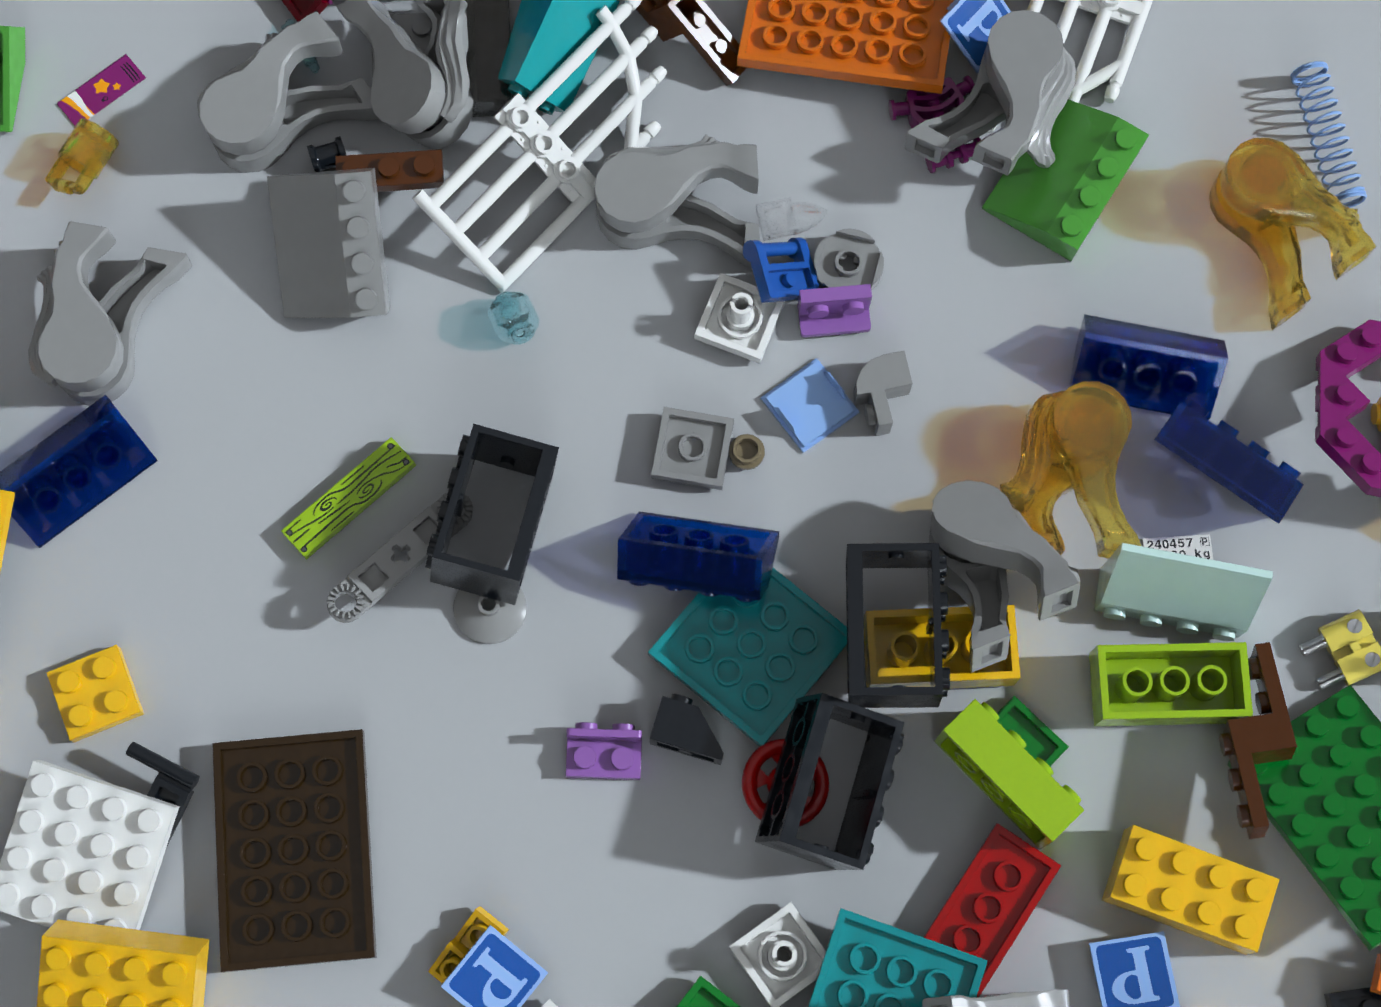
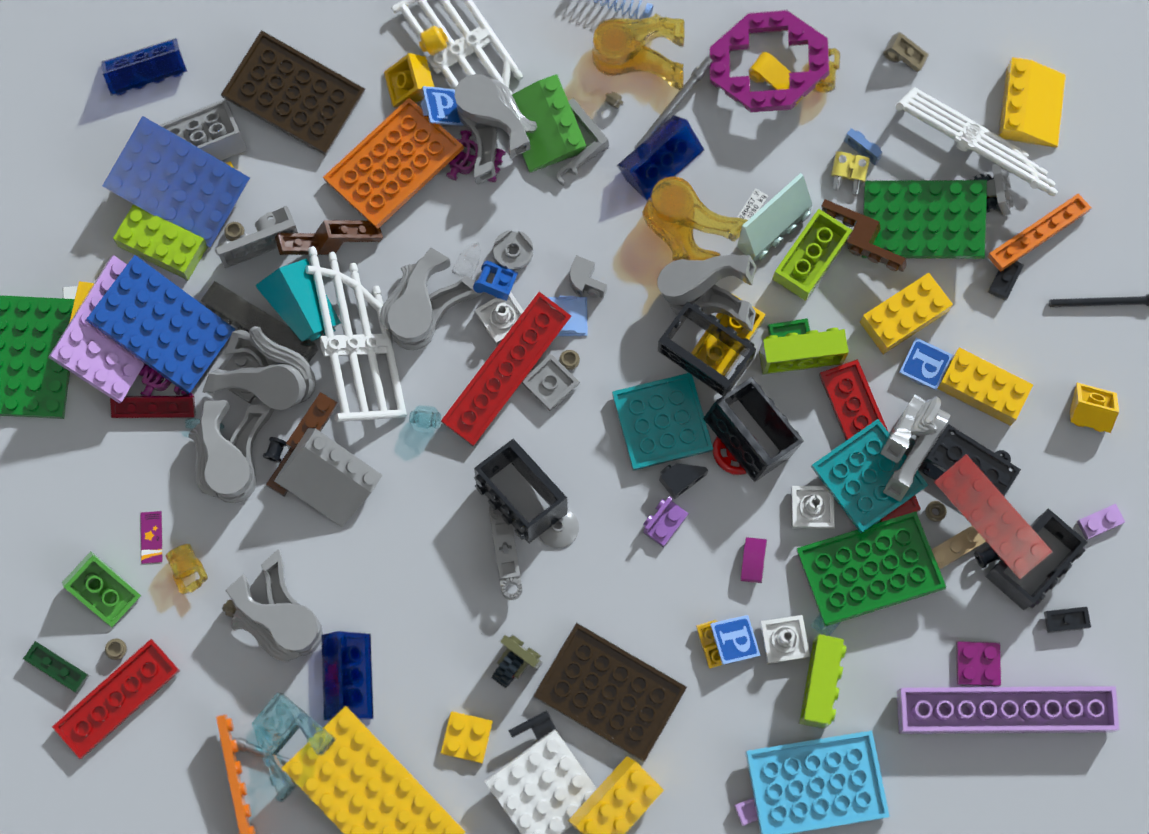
camera: 55 degrees left, 0 degrees up
(245, 680) = (514, 661): none -> plate
(348, 498) = (457, 556): lime tile -> none
(636, 922) = (753, 560): none -> magenta slope
(665, 372) = (505, 368): none -> red plate
(697, 556) = (606, 414): clear blue slope -> none
(834, 310) = (532, 272): medium lavender bracket -> none
(1080, 266) = (600, 142): none -> light grey hinge
(1180, 244) = (614, 99): none -> dark tan plate
(1229, 460) = (732, 154): clear blue slope -> none
(1312, 329) = (697, 75): none -> flat silver bar

